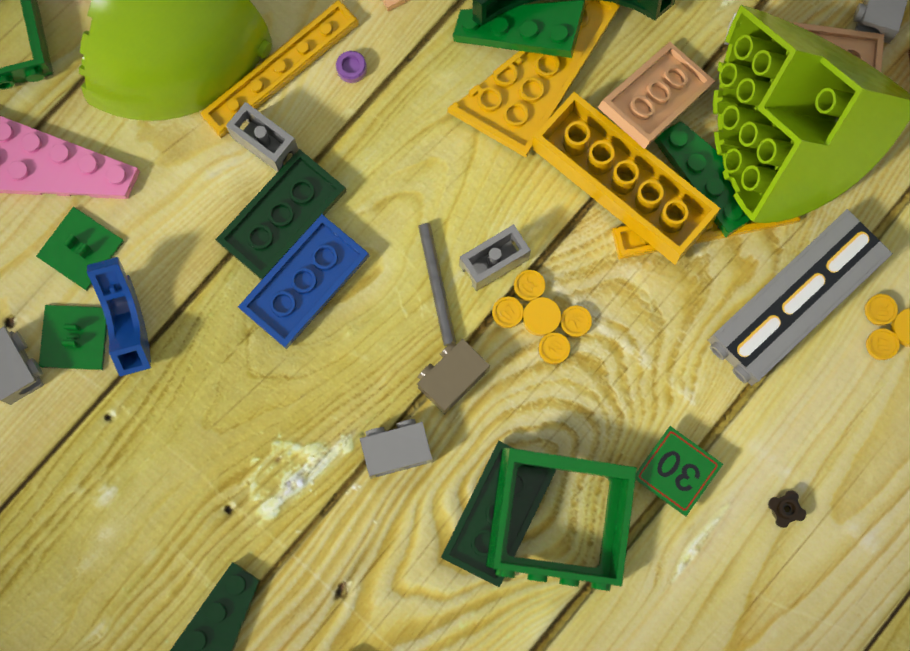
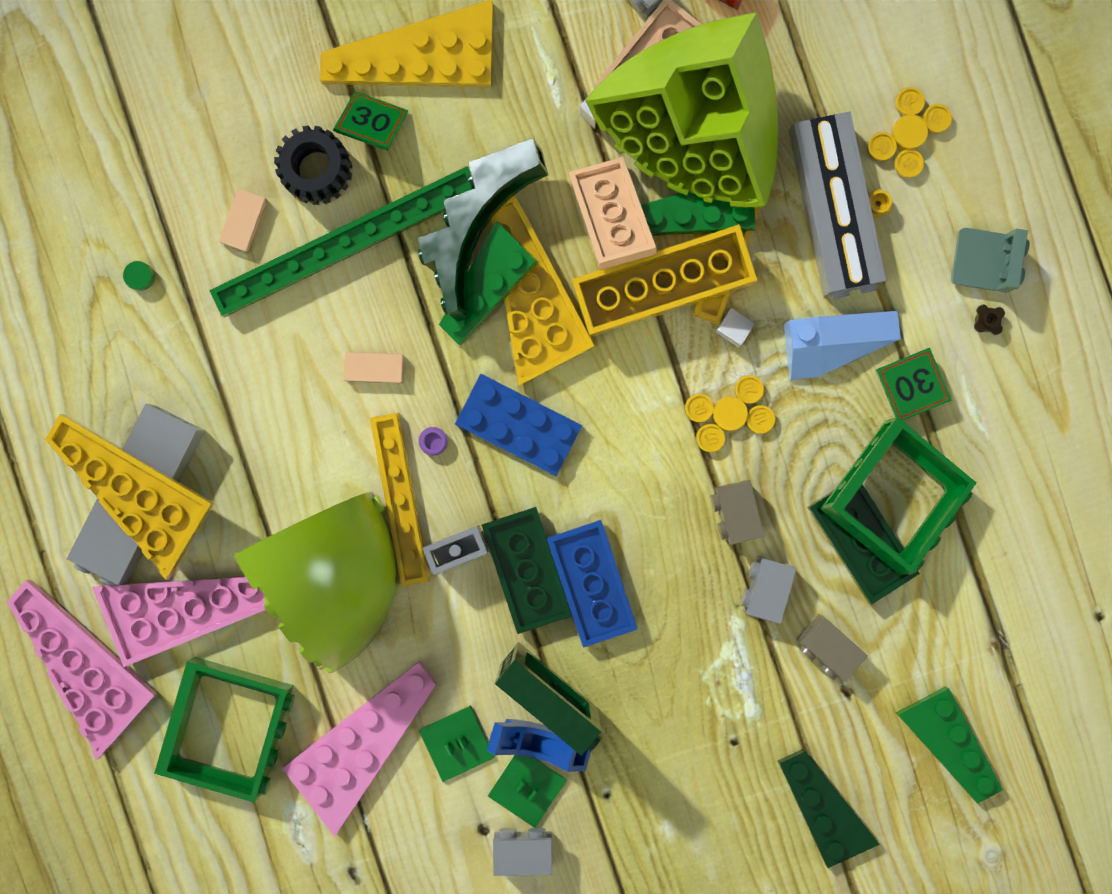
camera: 55 degrees left, 10 degrees up
(169, 287) = (550, 699): none -> dark green piece
(374, 543) = (831, 647): none -> dark tan brick
(412, 132) = (518, 424): none -> blue plate
(436, 284) = (655, 480): flat silver bar -> none
(495, 257) = (666, 423): light grey brick -> none
(624, 273) = (734, 327): none -> white slope
(670, 370) = (830, 342): none -> light blue wedge
(832, 331) = (885, 202): none -> yellow plate
(843, 472) = (990, 259): none -> sand green bracket

